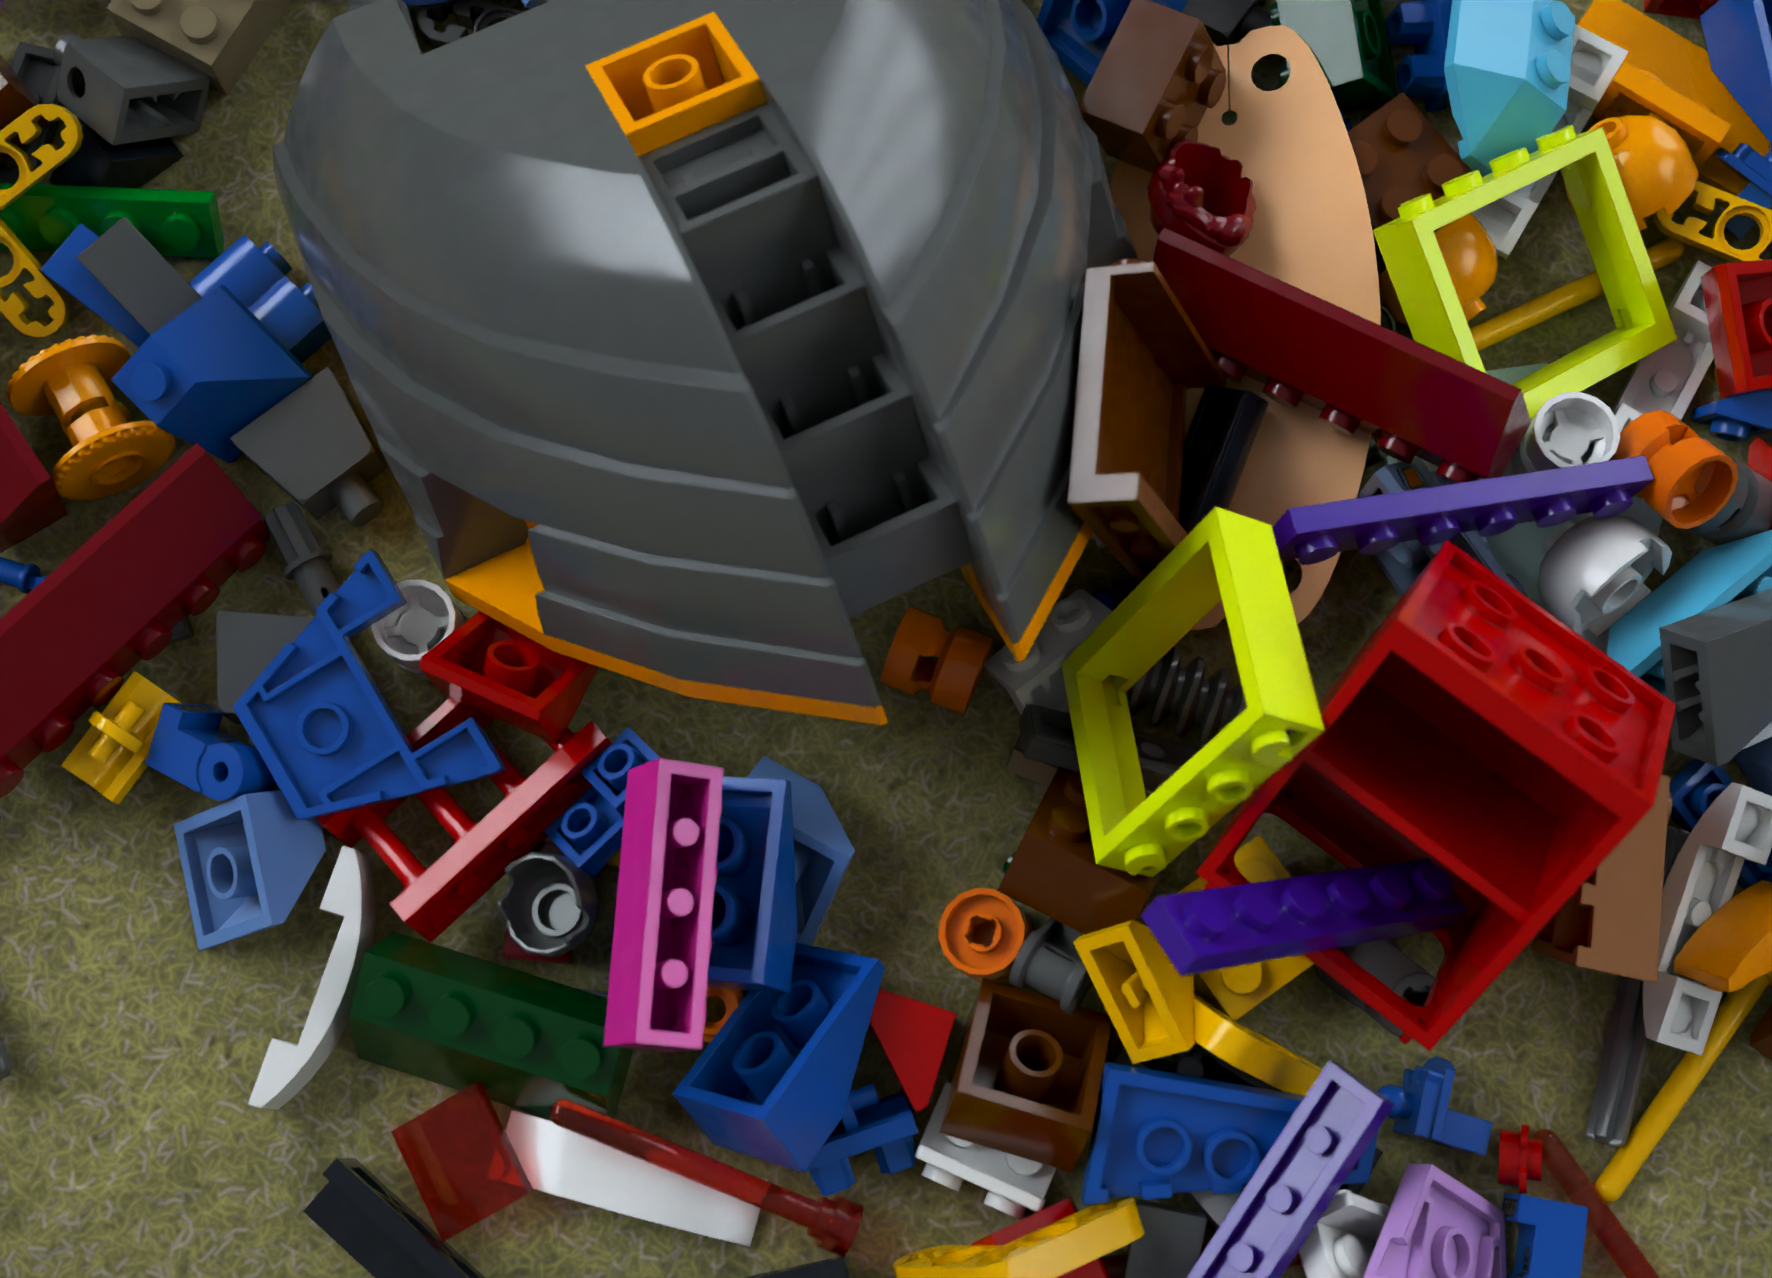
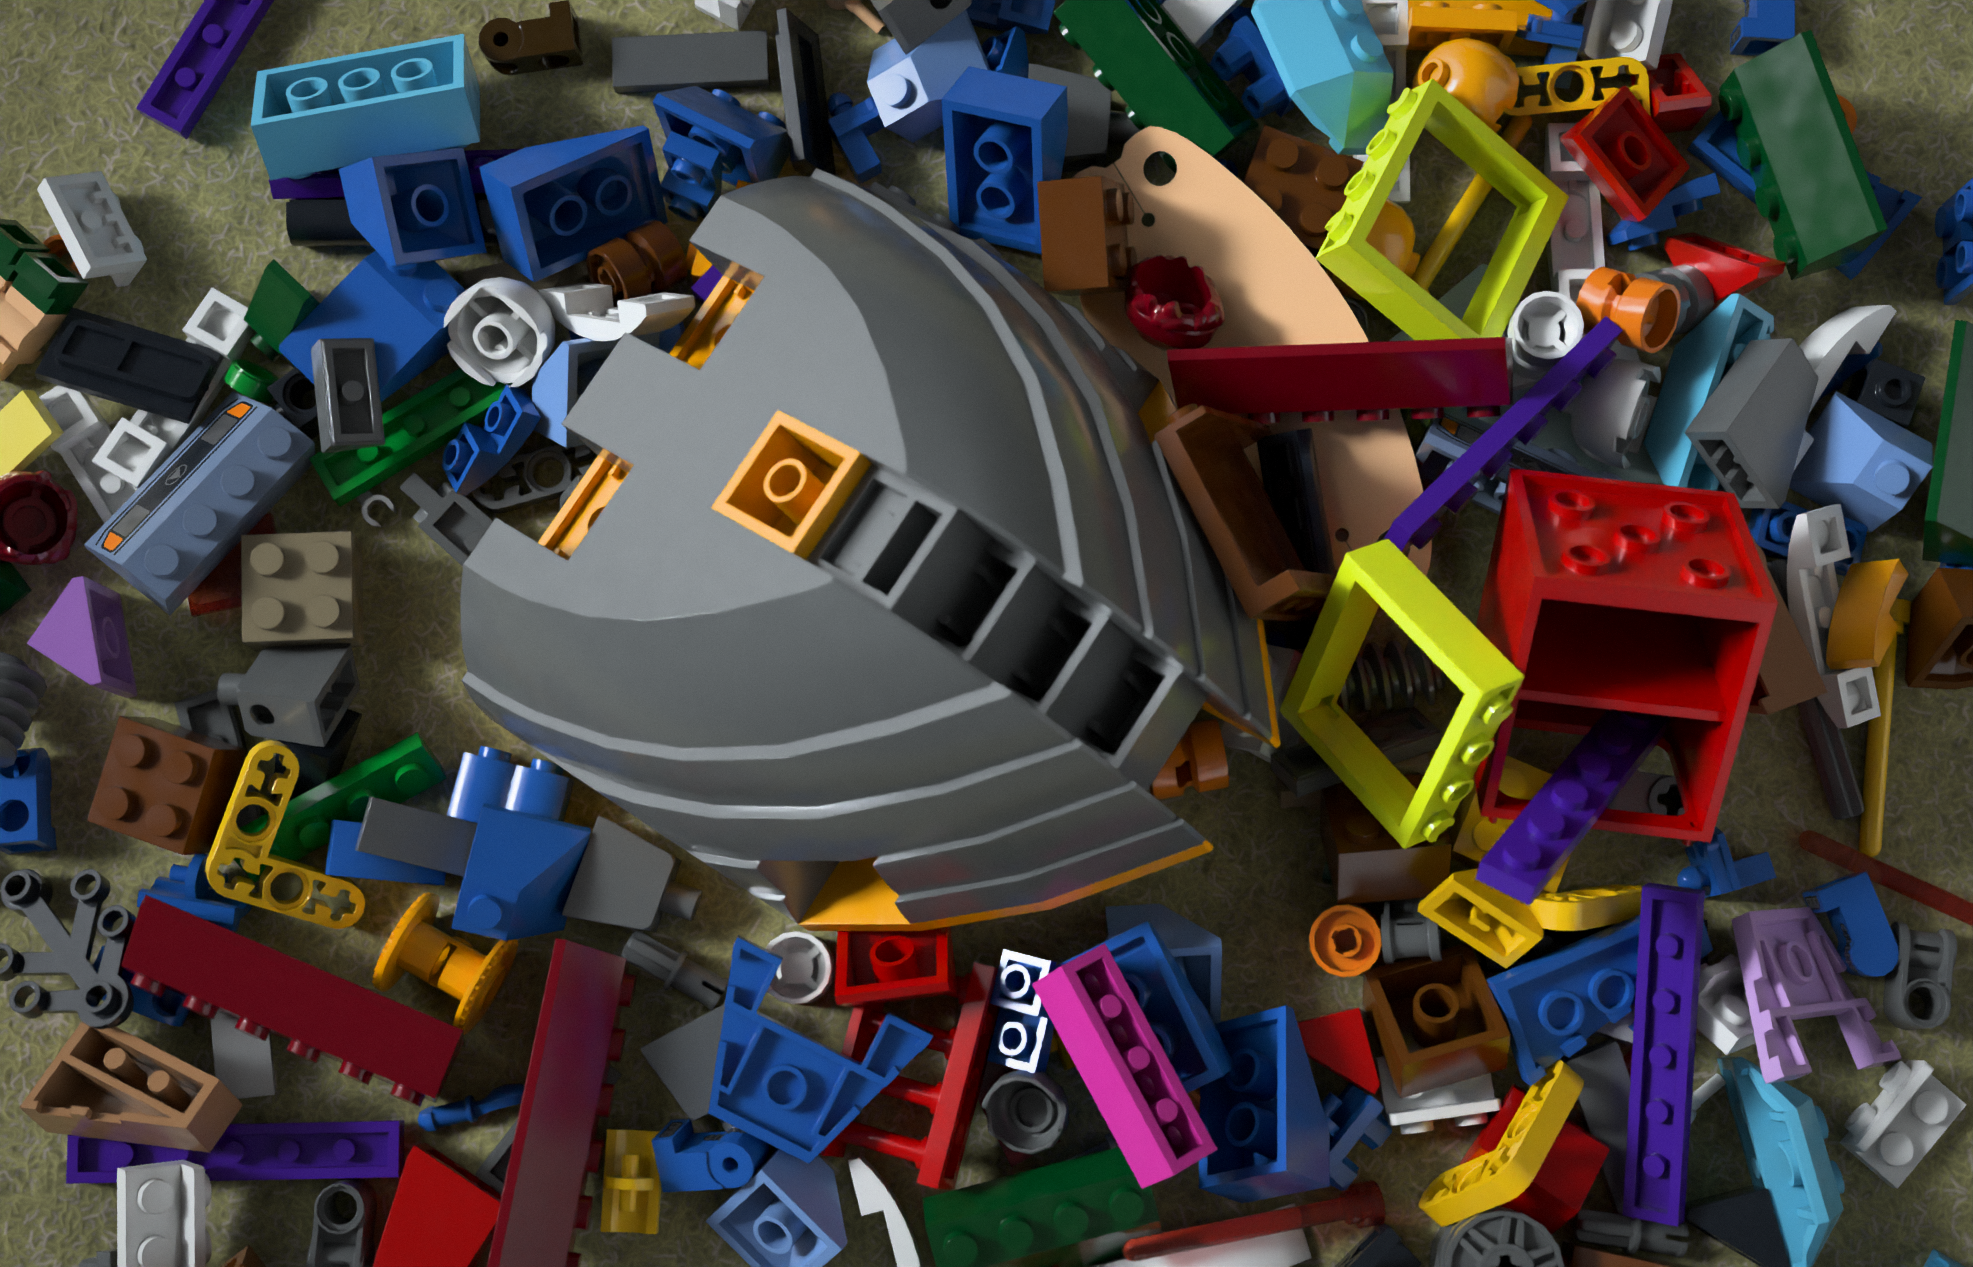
camera: 30 degrees left, 5 degrees up
(1519, 1158) = (1800, 864): red plate -> none

